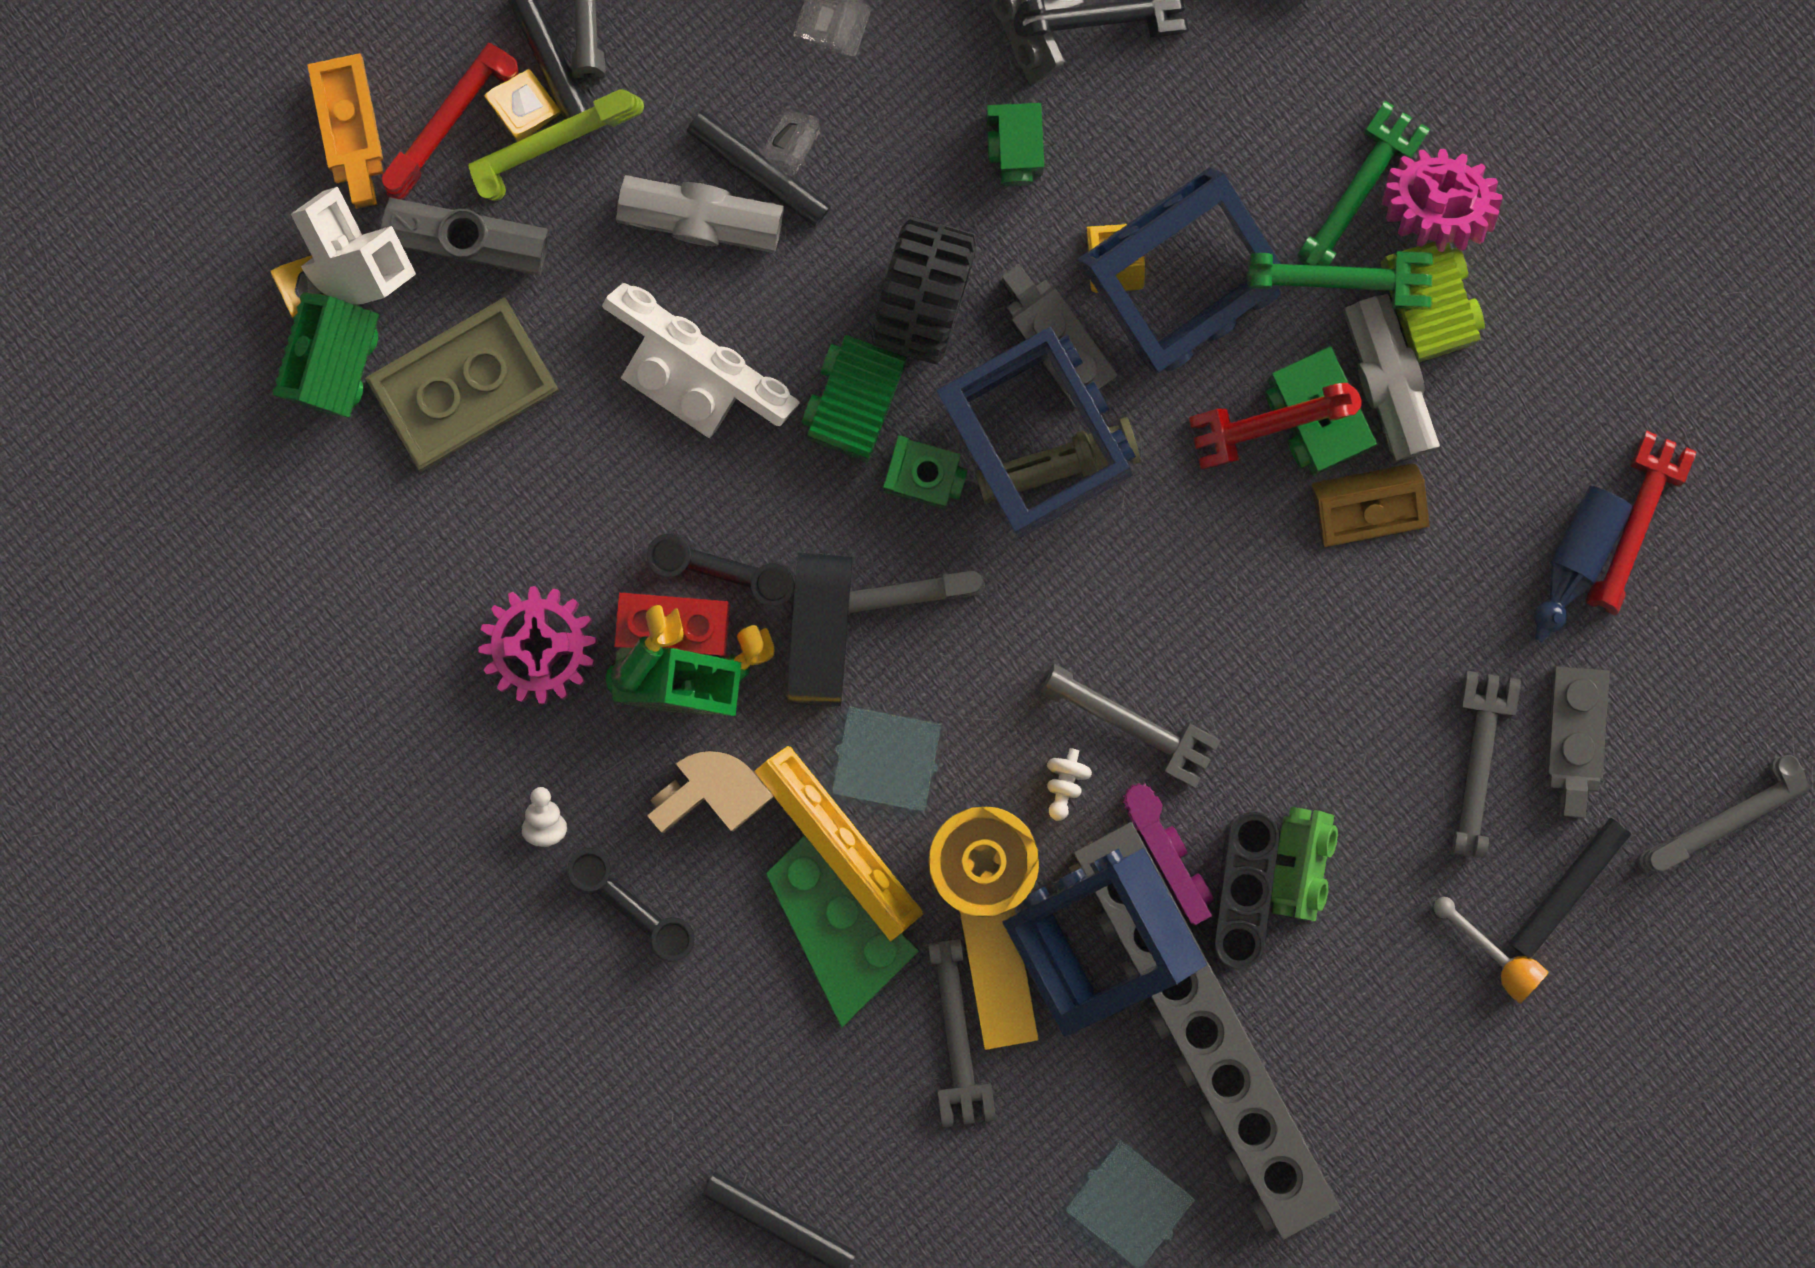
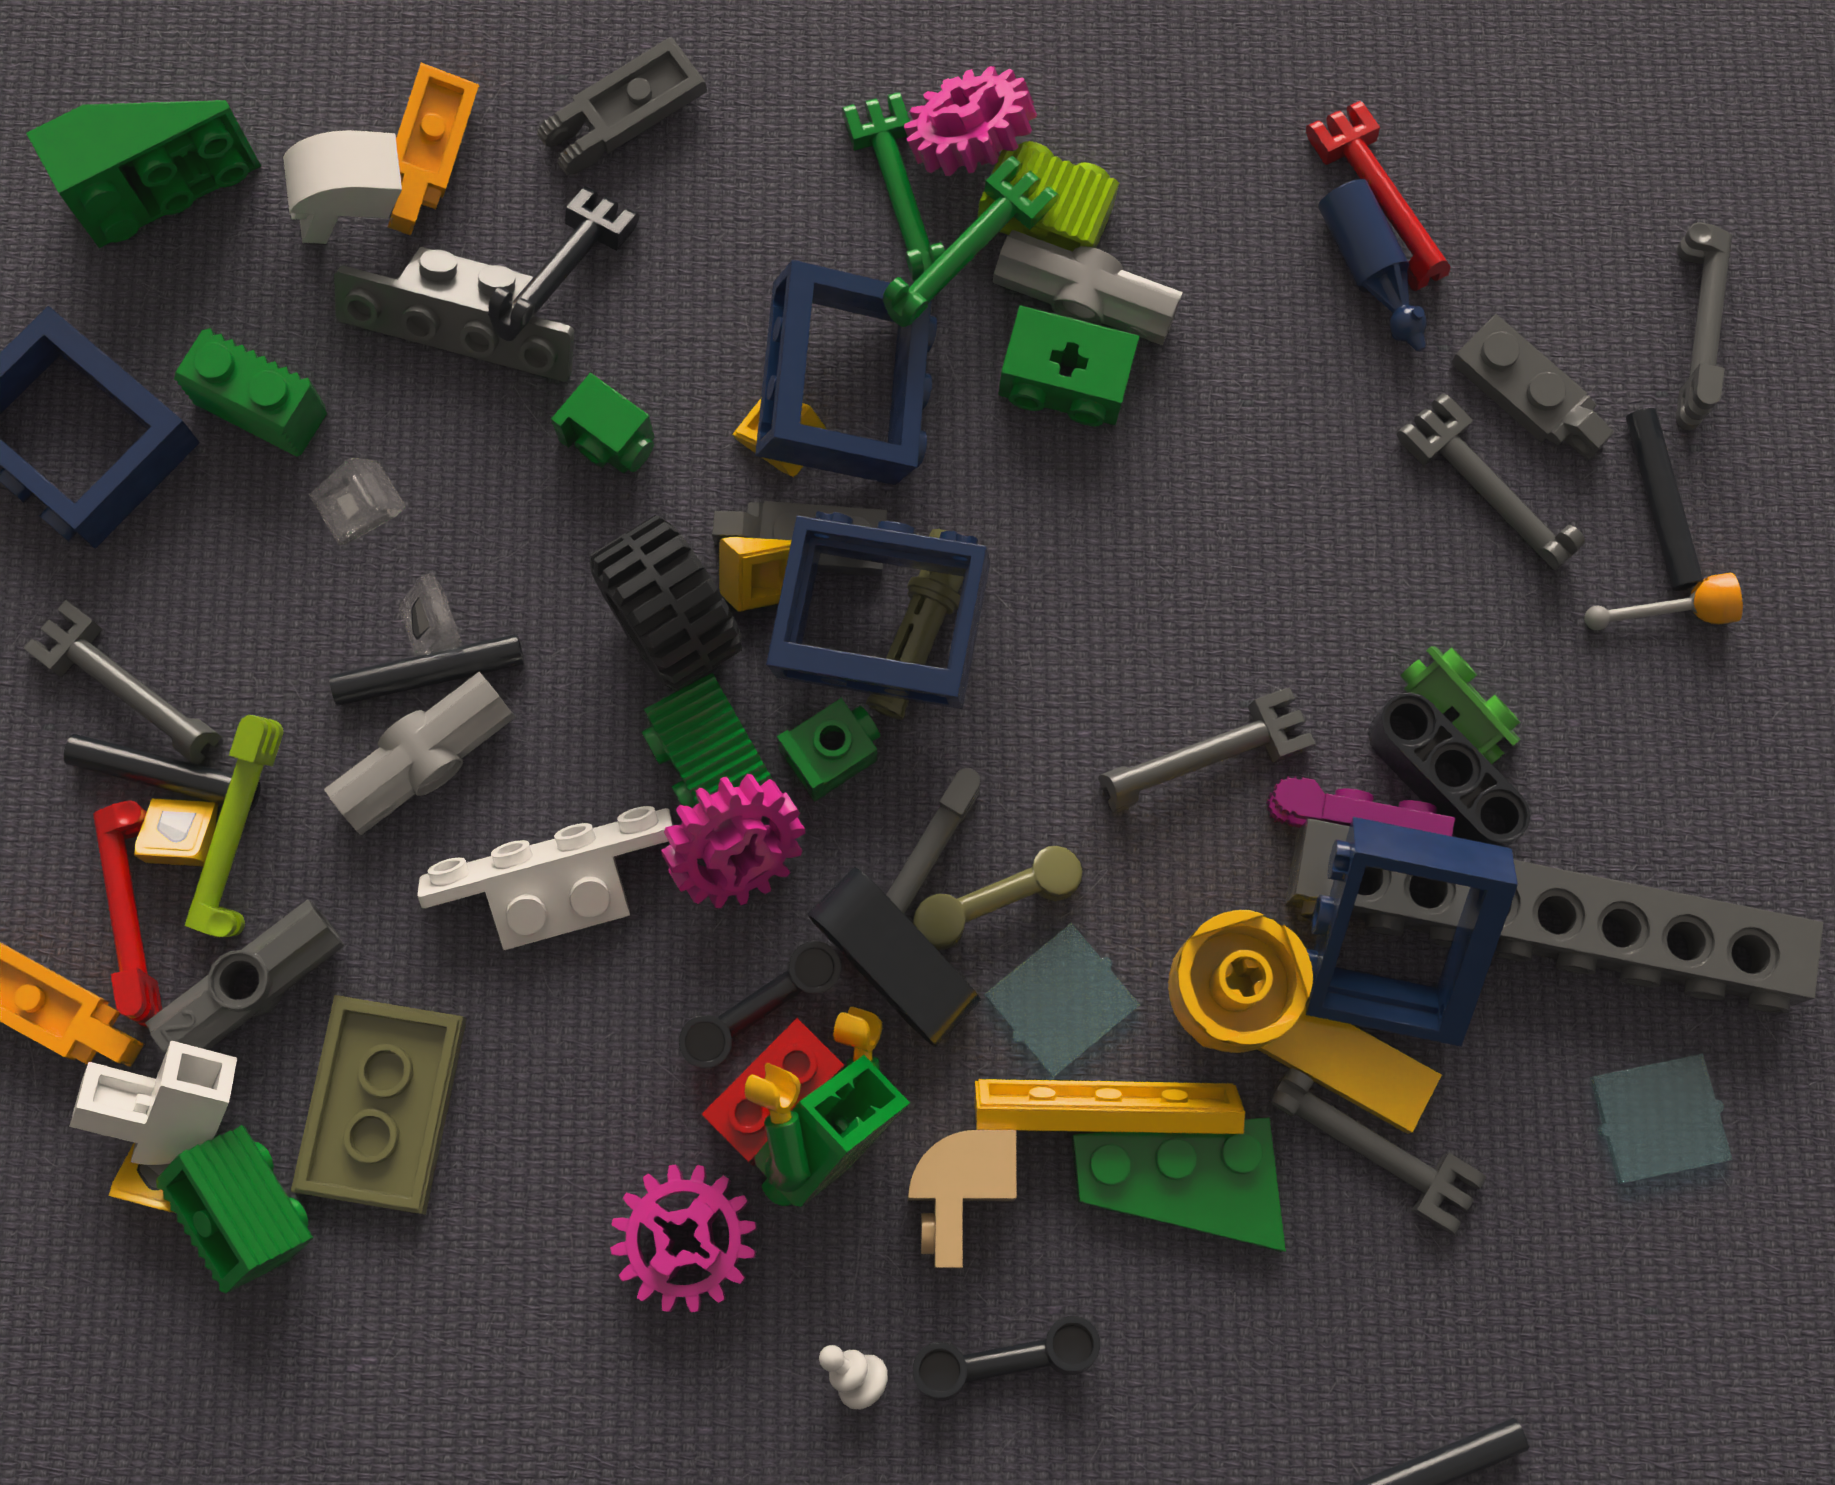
camera: 50 degrees left, 10 degrees down
(807, 465) = (733, 841): none -> dark pink gear
(872, 640) = (1053, 876): none -> olive bar
(1000, 323) = (752, 571): none -> yellow slope
(1064, 787) = (1221, 858): white hair -> none
(1337, 403) = (1081, 324): red hinge -> none
(1371, 504) = (1183, 394): pearl gold slope -> none

